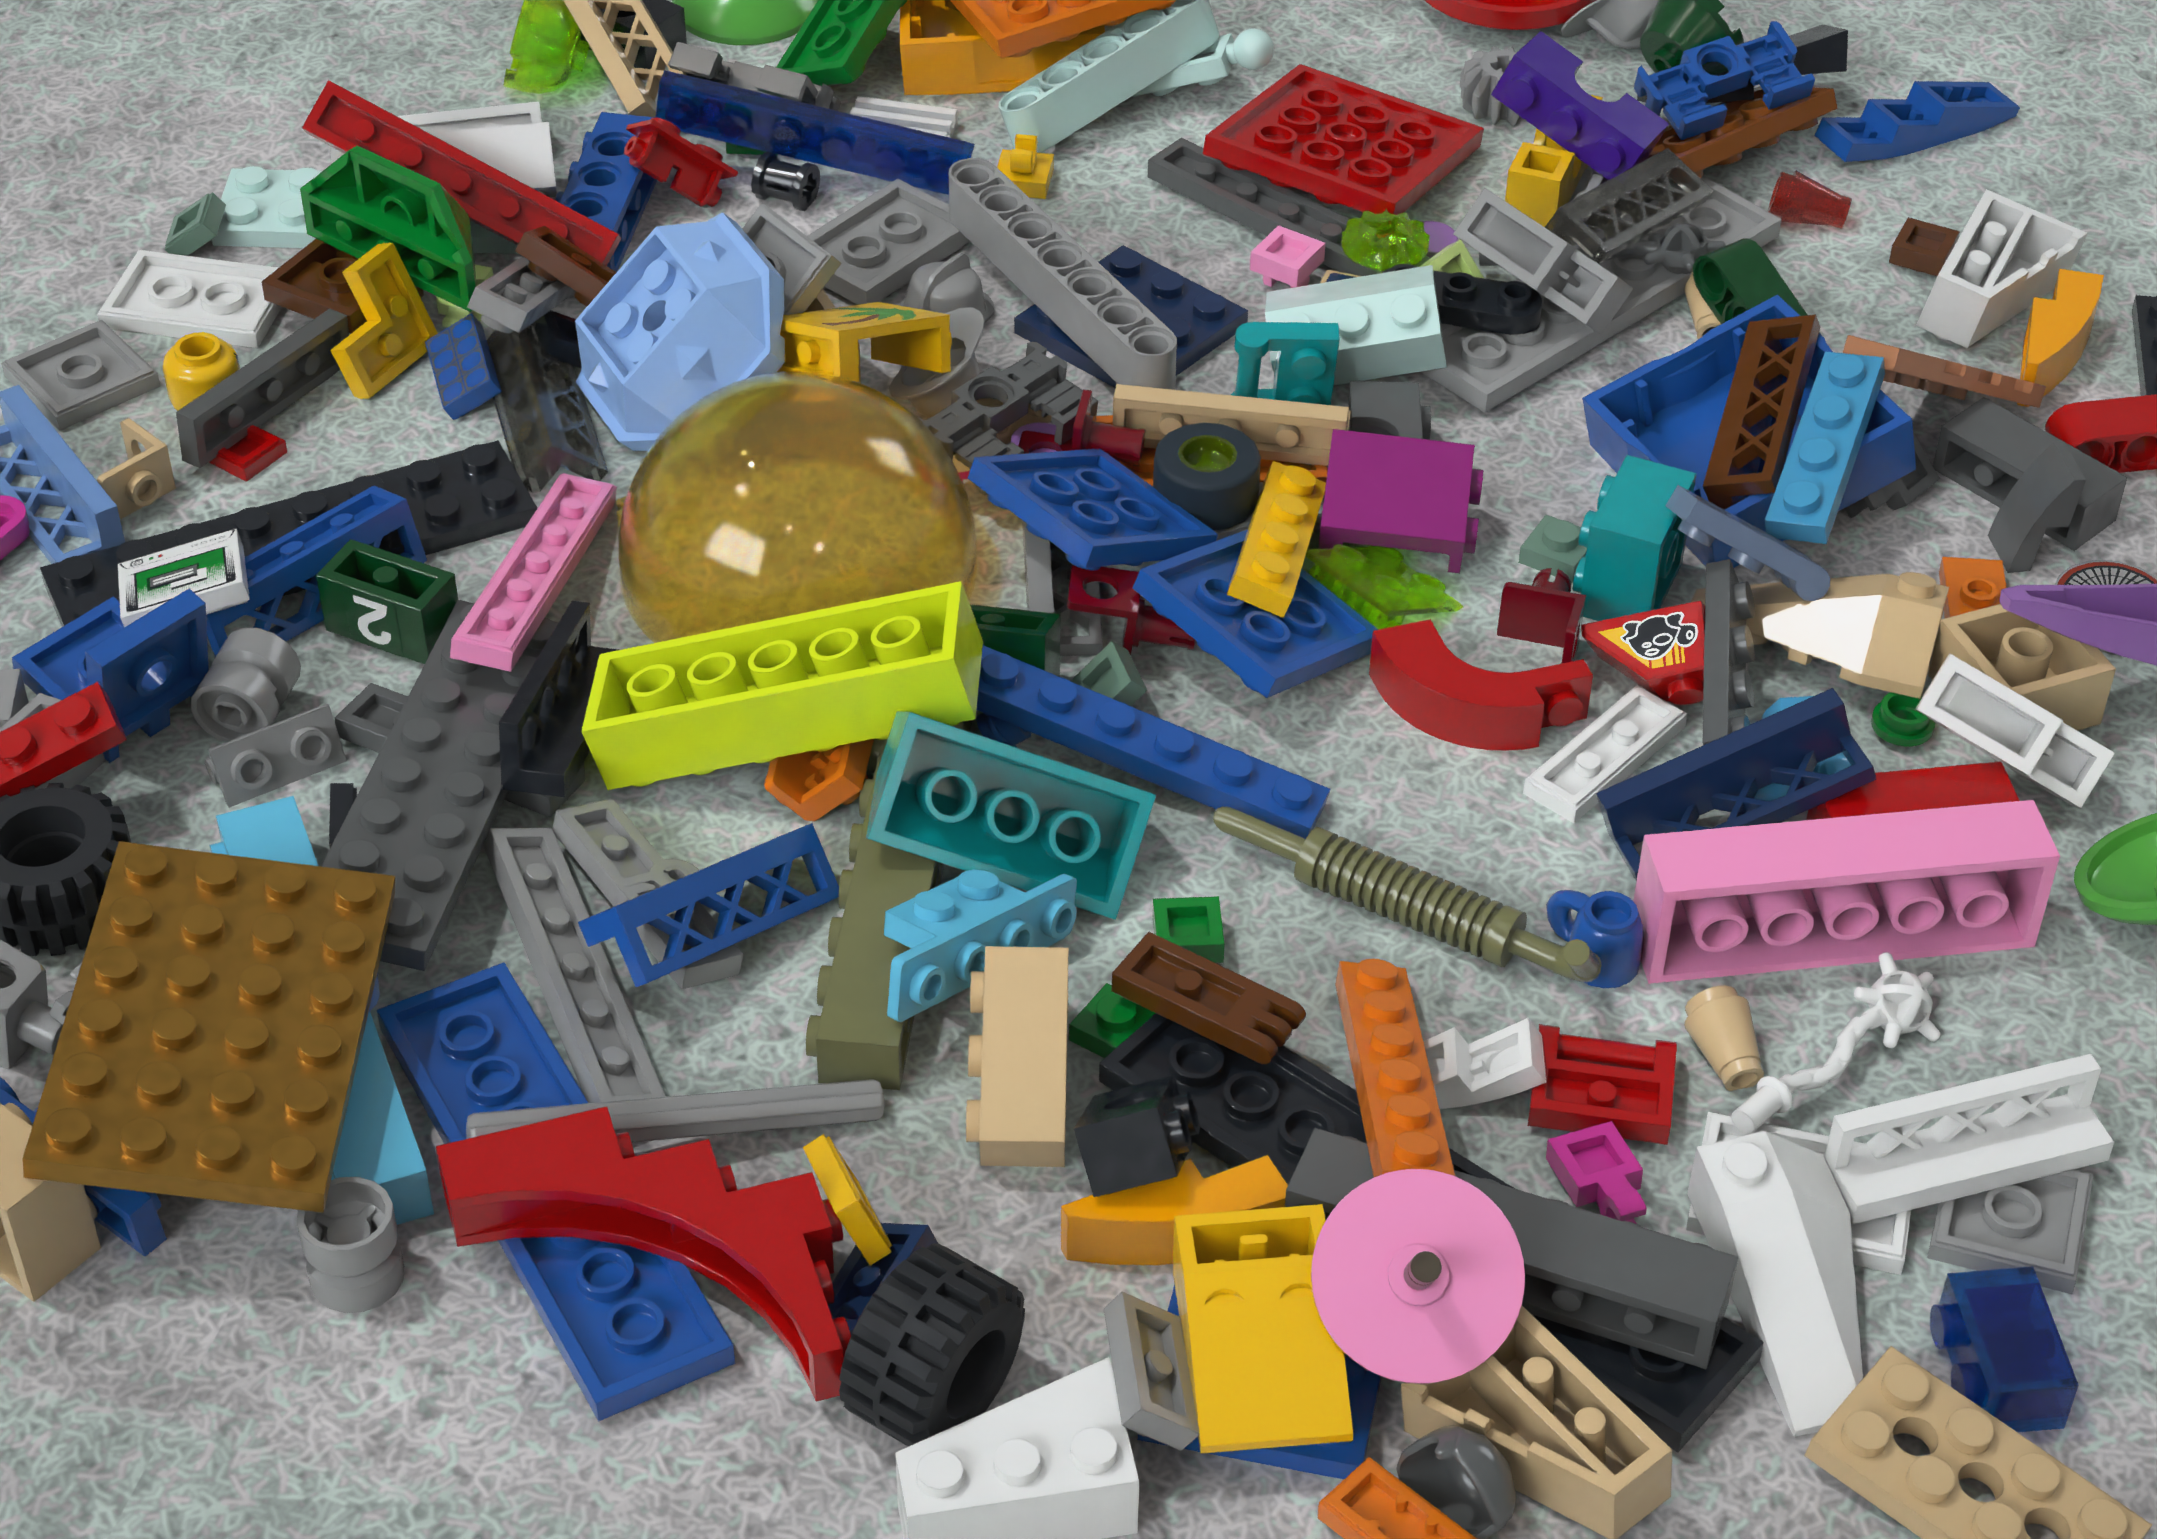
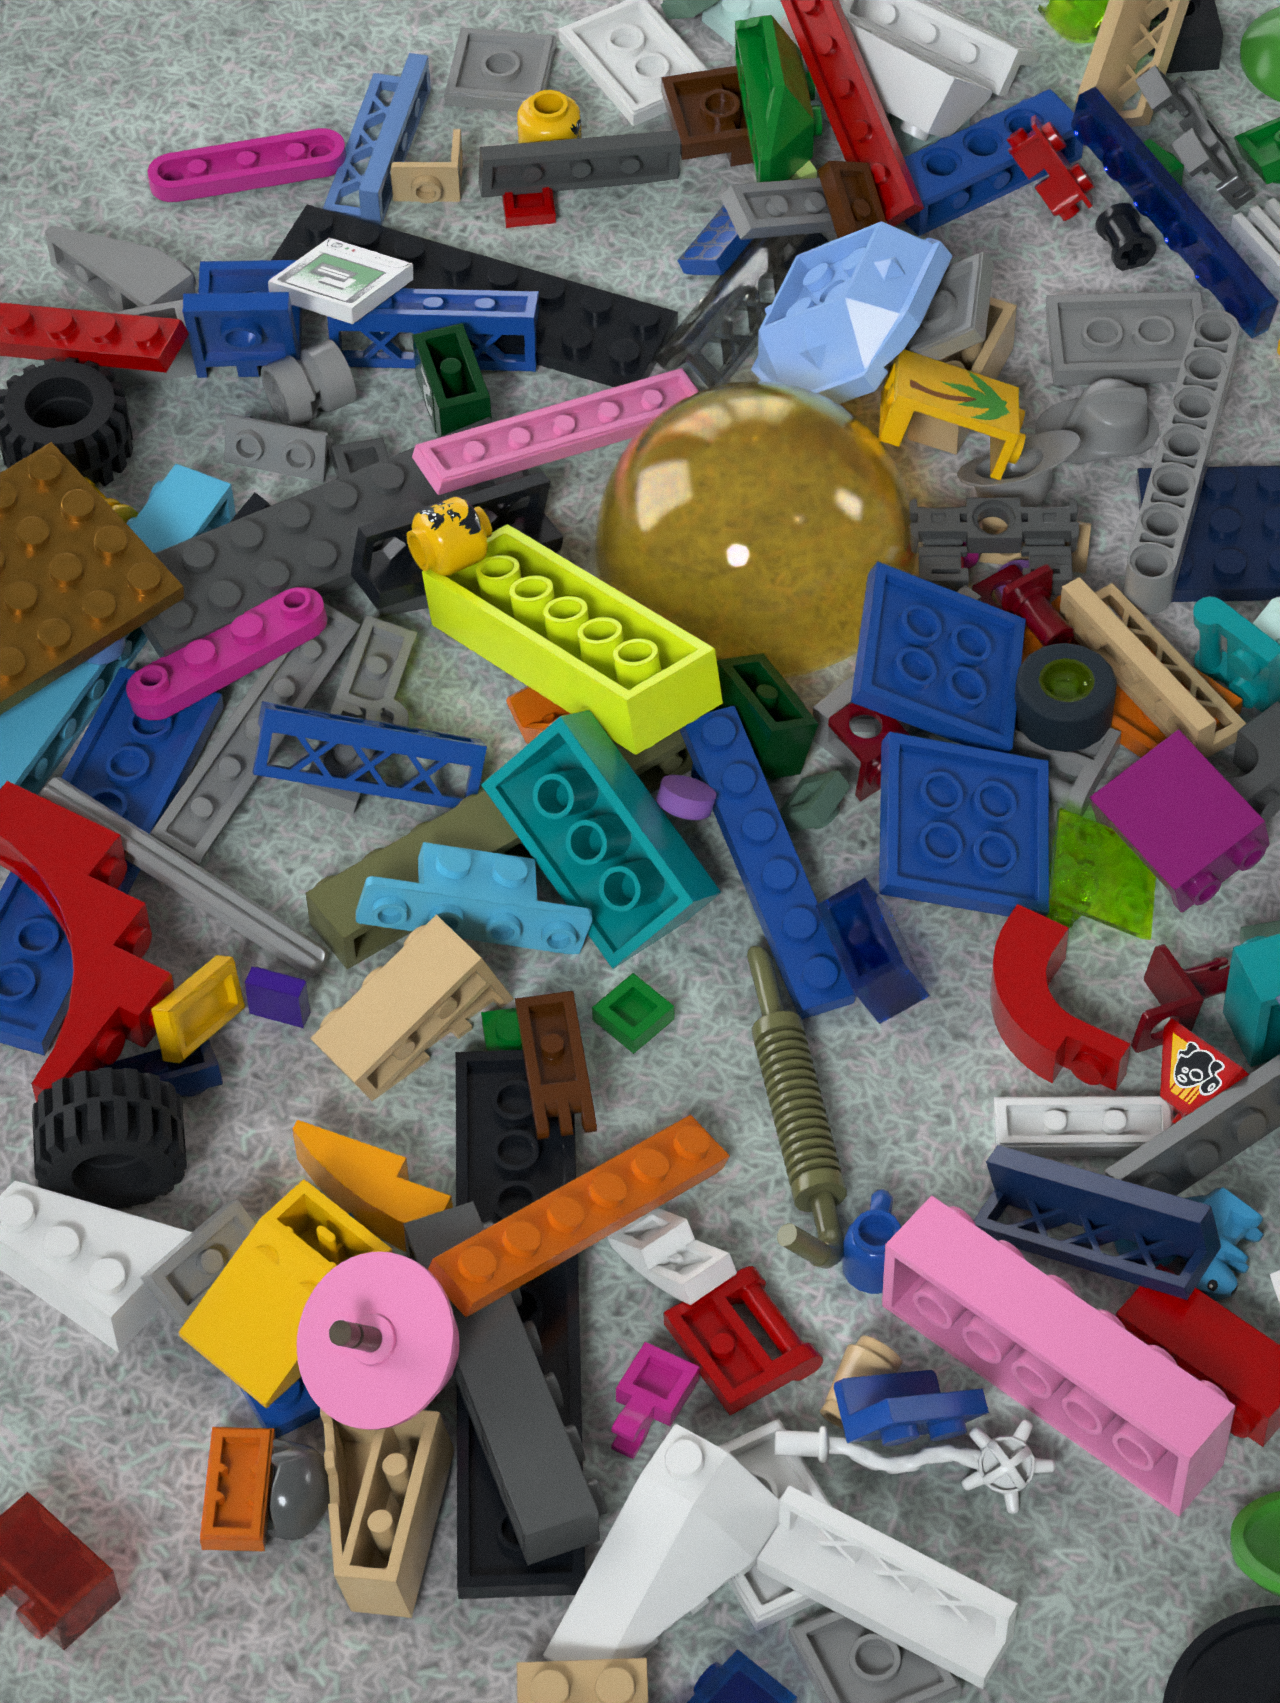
camera: 50 degrees right, 10 degrees up
(394, 325) = (699, 180): yellow plate -> none
(476, 923) = (227, 654): none -> dark pink plate
(582, 681) = (449, 536): none -> yellow head
(889, 1144) = (277, 996): none -> dark purple tile
(1037, 733) = (686, 797): none -> medium lavender tile
(1136, 1135) = (388, 1113): black brick -> none
(1277, 539) = (1042, 783): yellow plate -> none
(1315, 739) = (872, 950): none -> clear blue brick
(1796, 1031) = (903, 1407): none -> blue bracket

